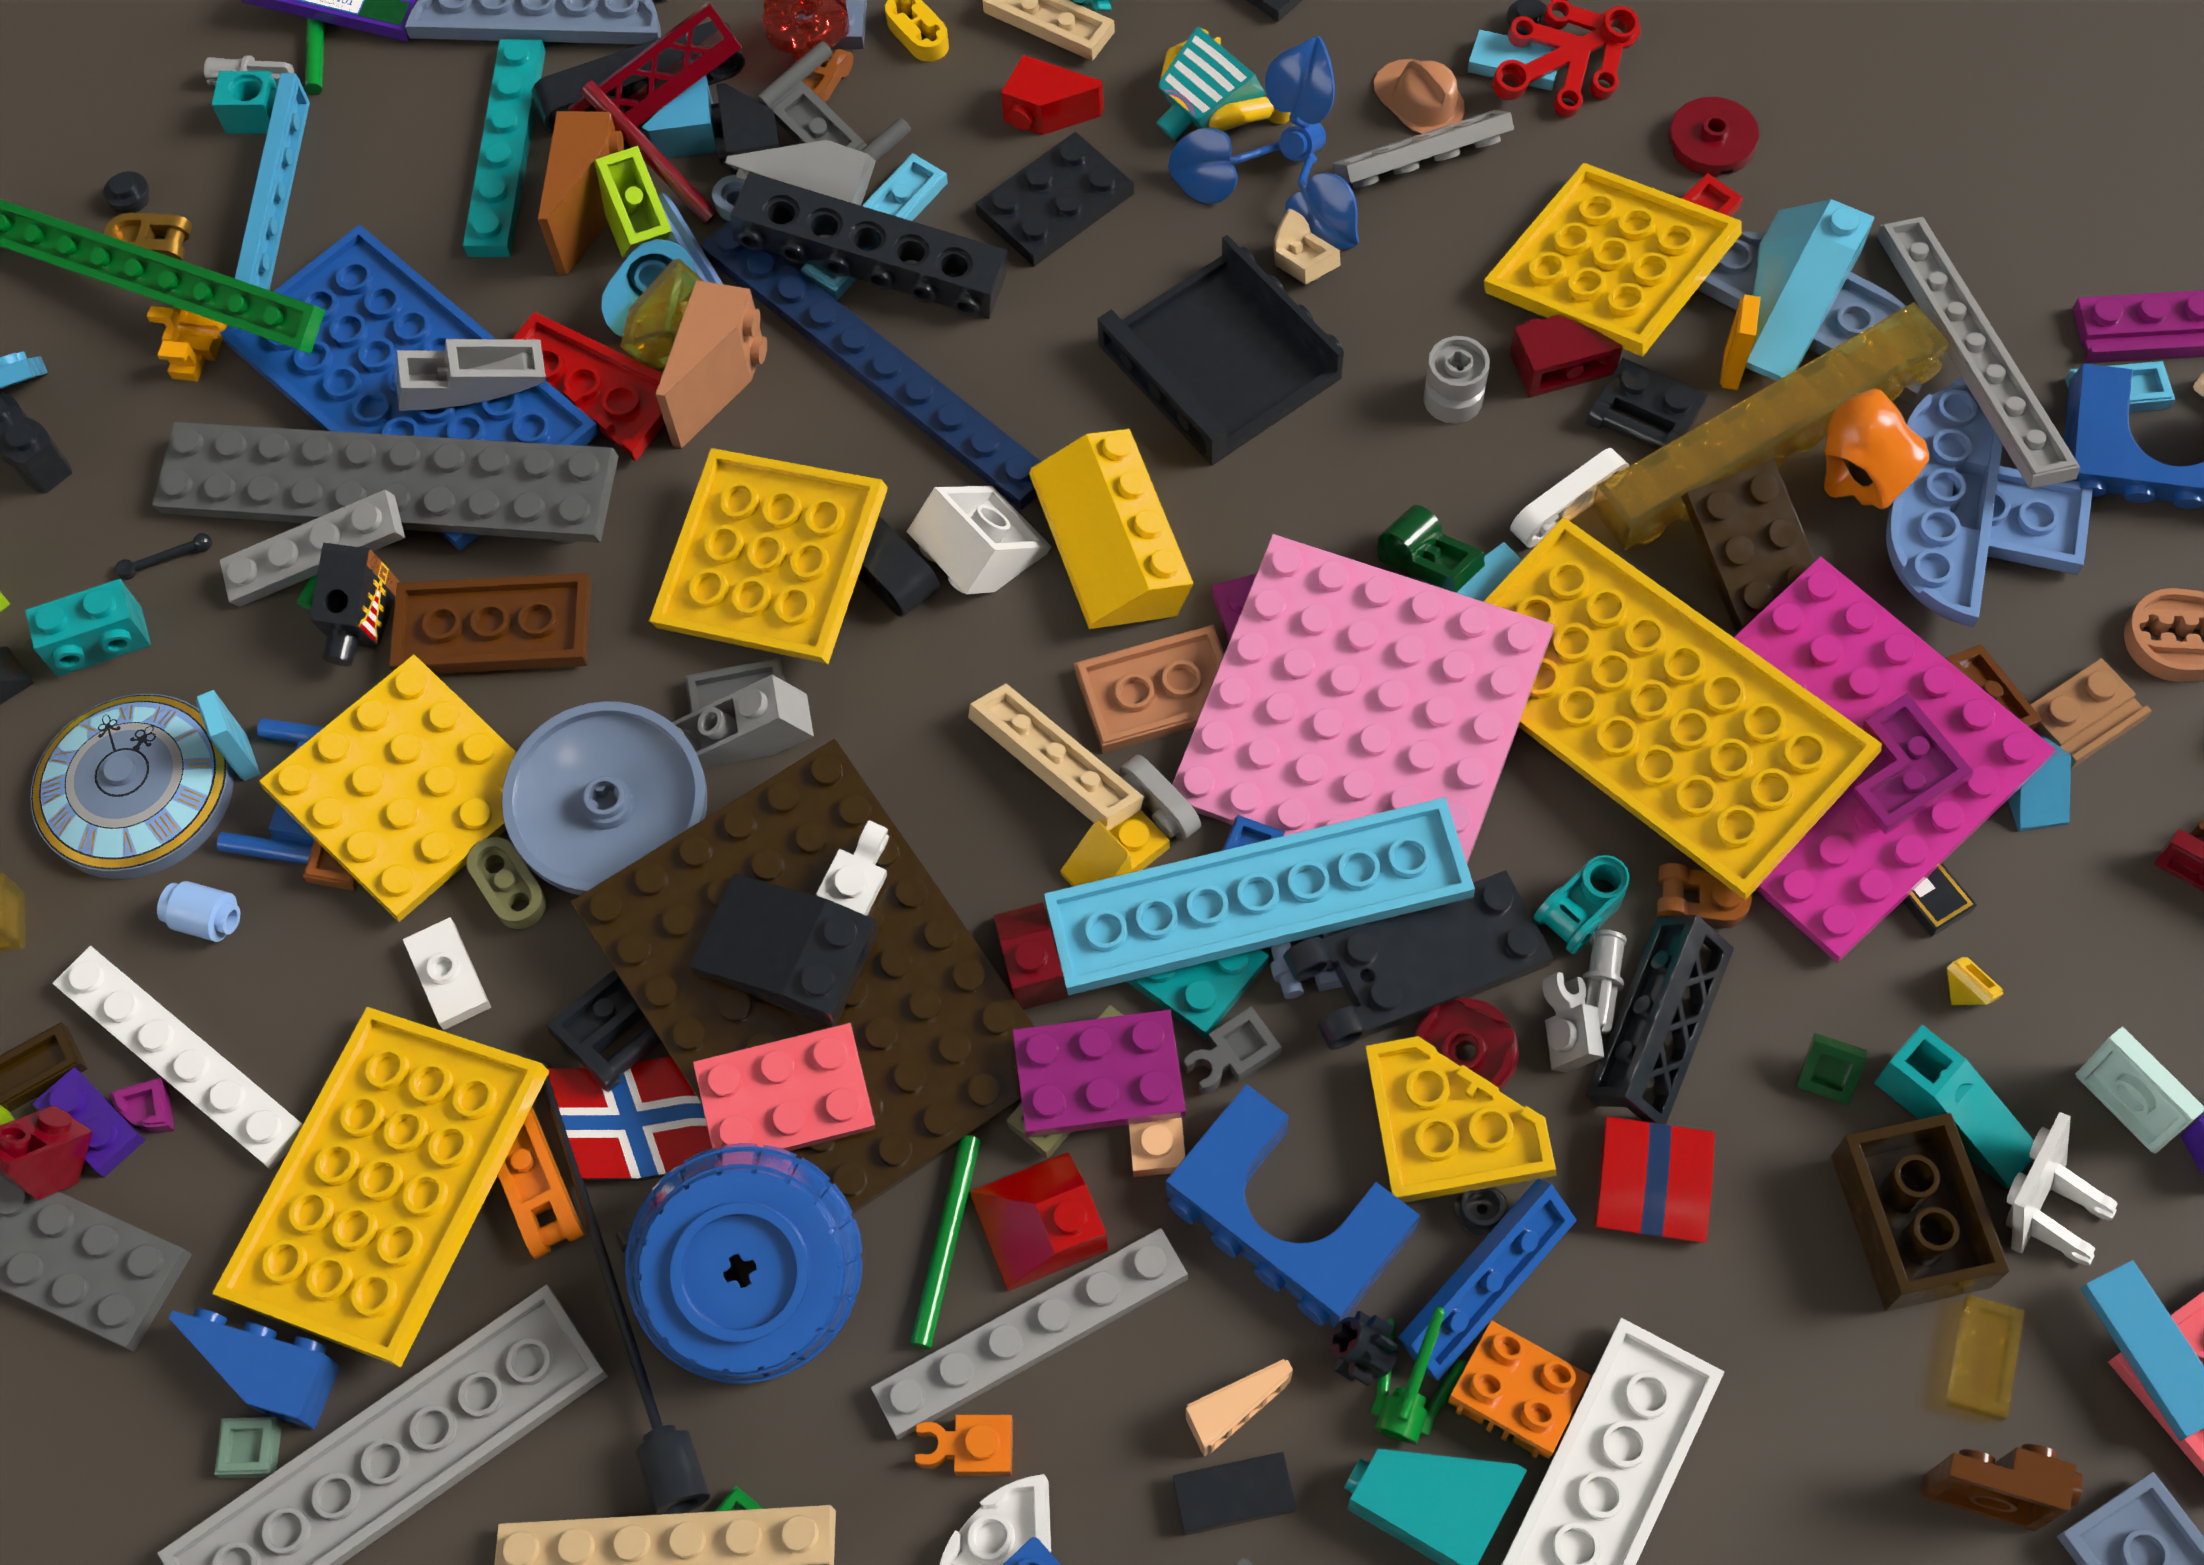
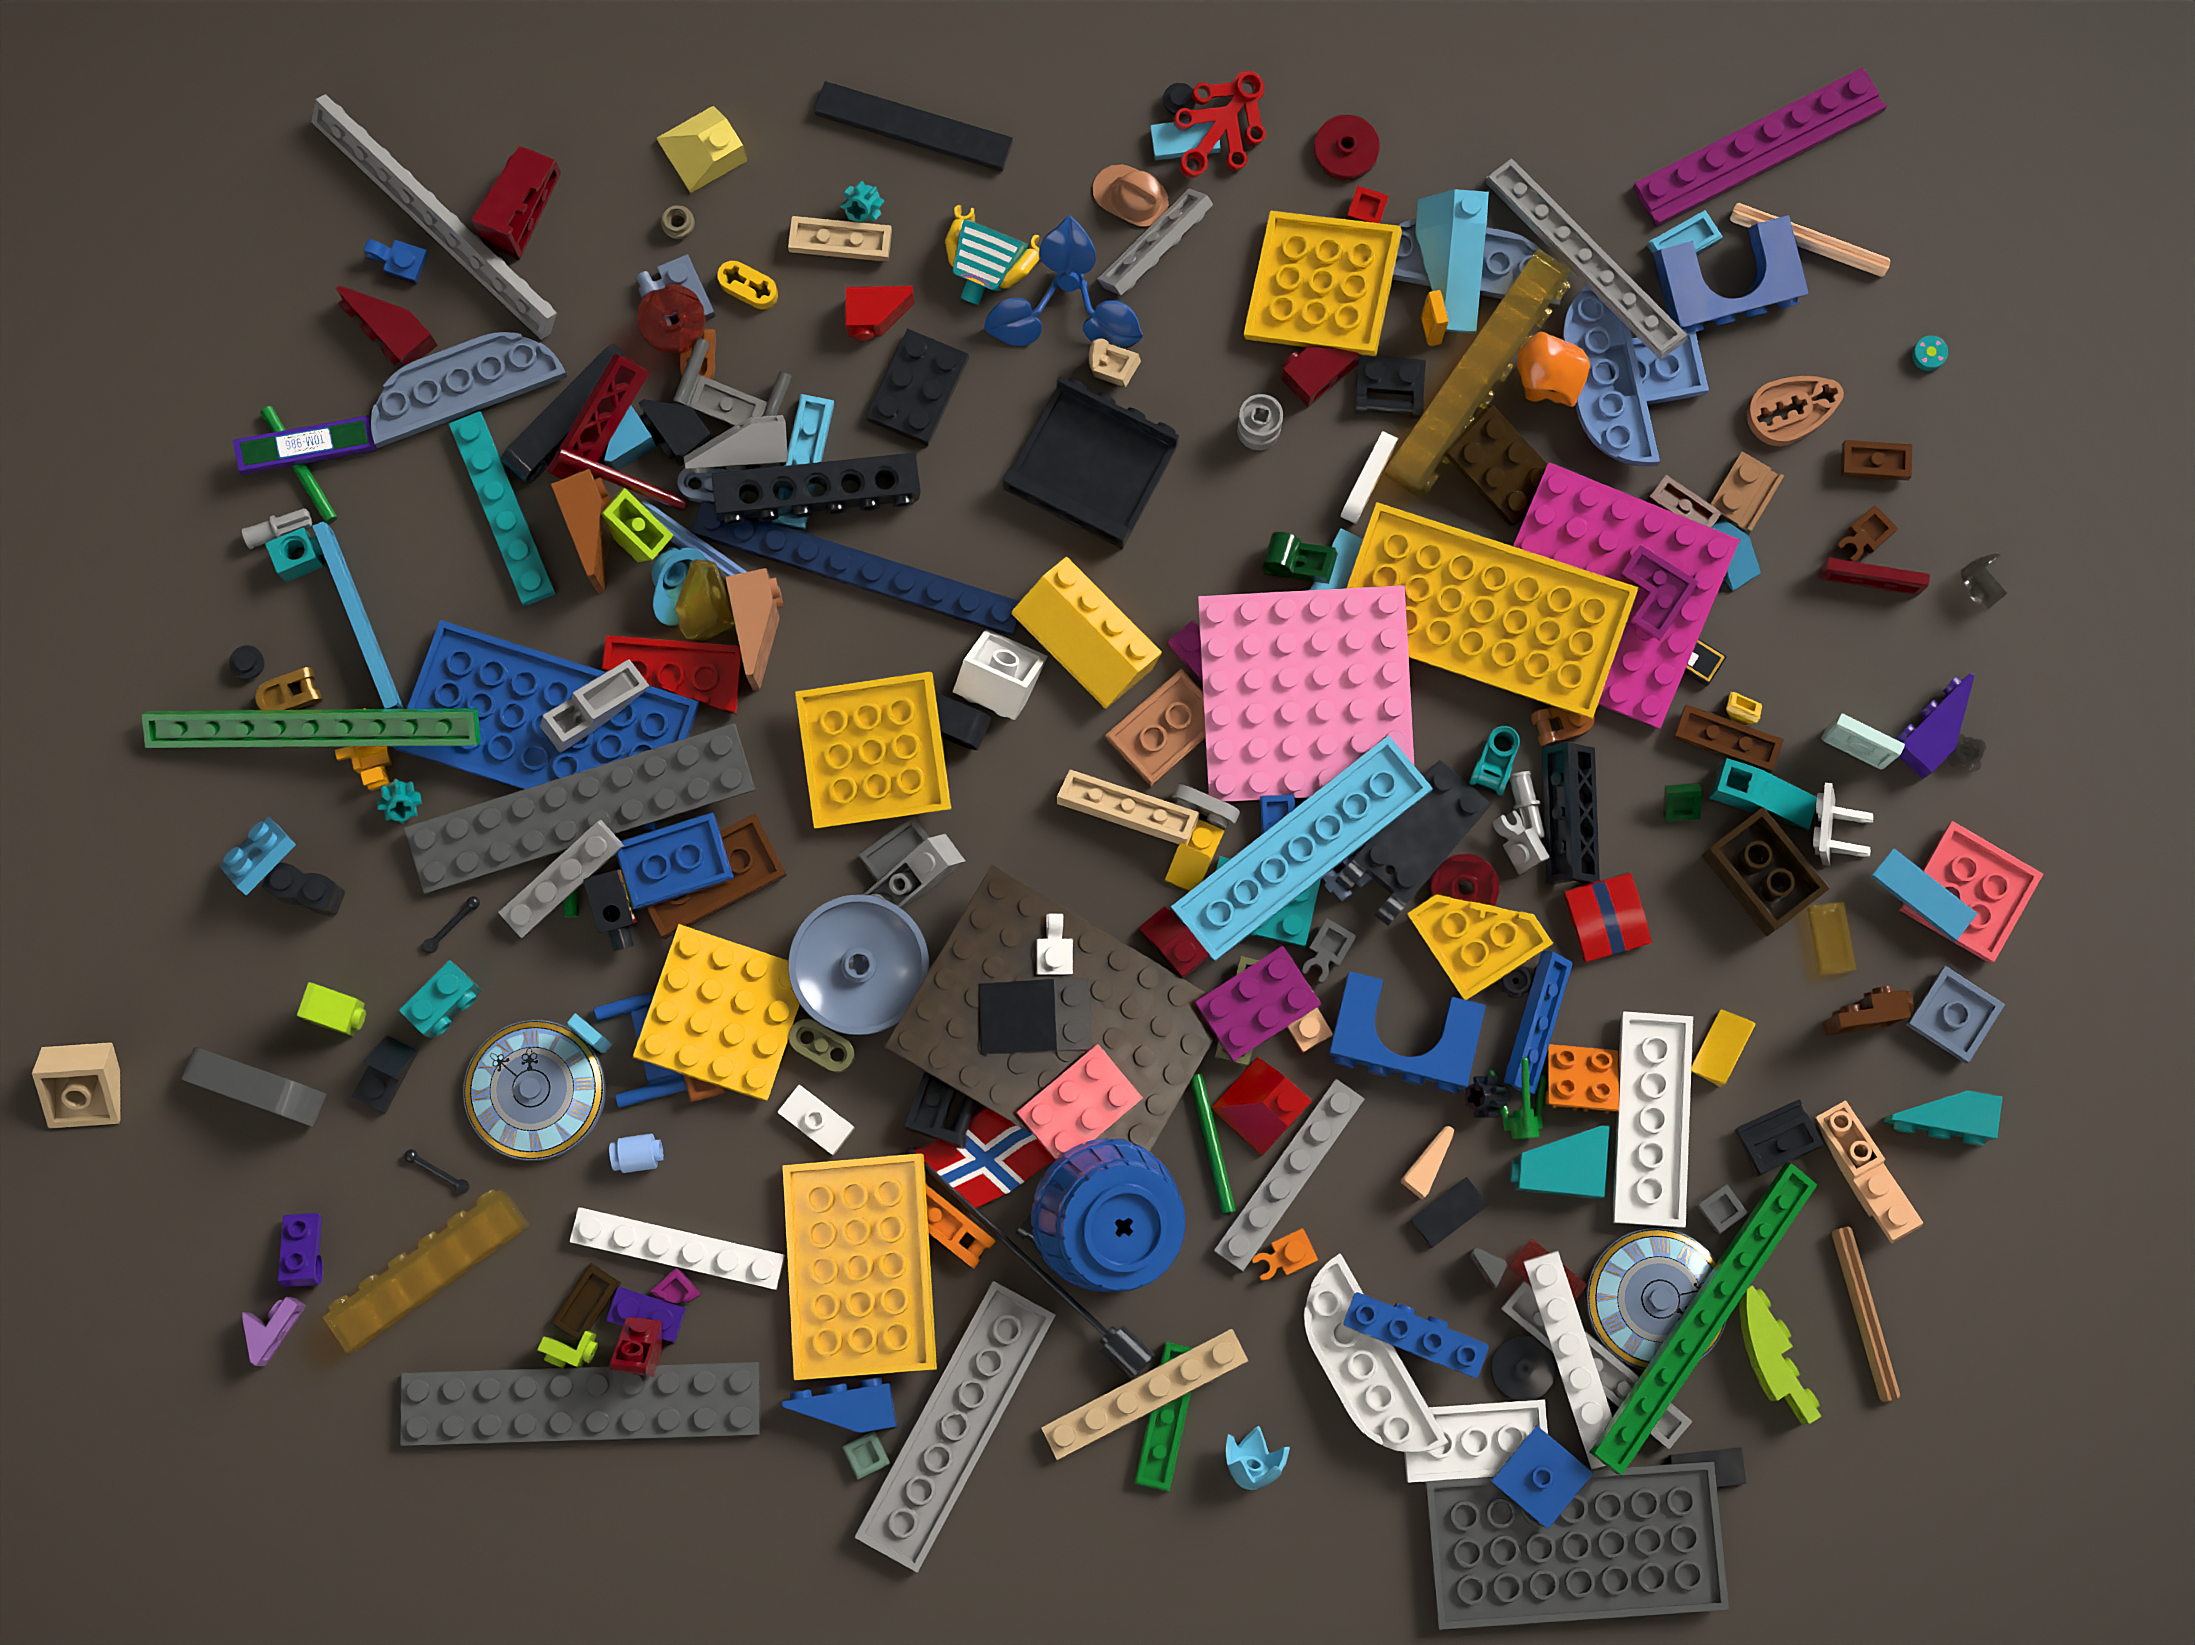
camera: 30 degrees left, 15 degrees up
(188, 392) = (399, 801): none -> teal gear
(455, 585) = (674, 861): none -> blue tile
(1751, 1440) = (1722, 1047): none -> yellow slope
(1922, 999) = (1728, 738): none -> reddish brown plate

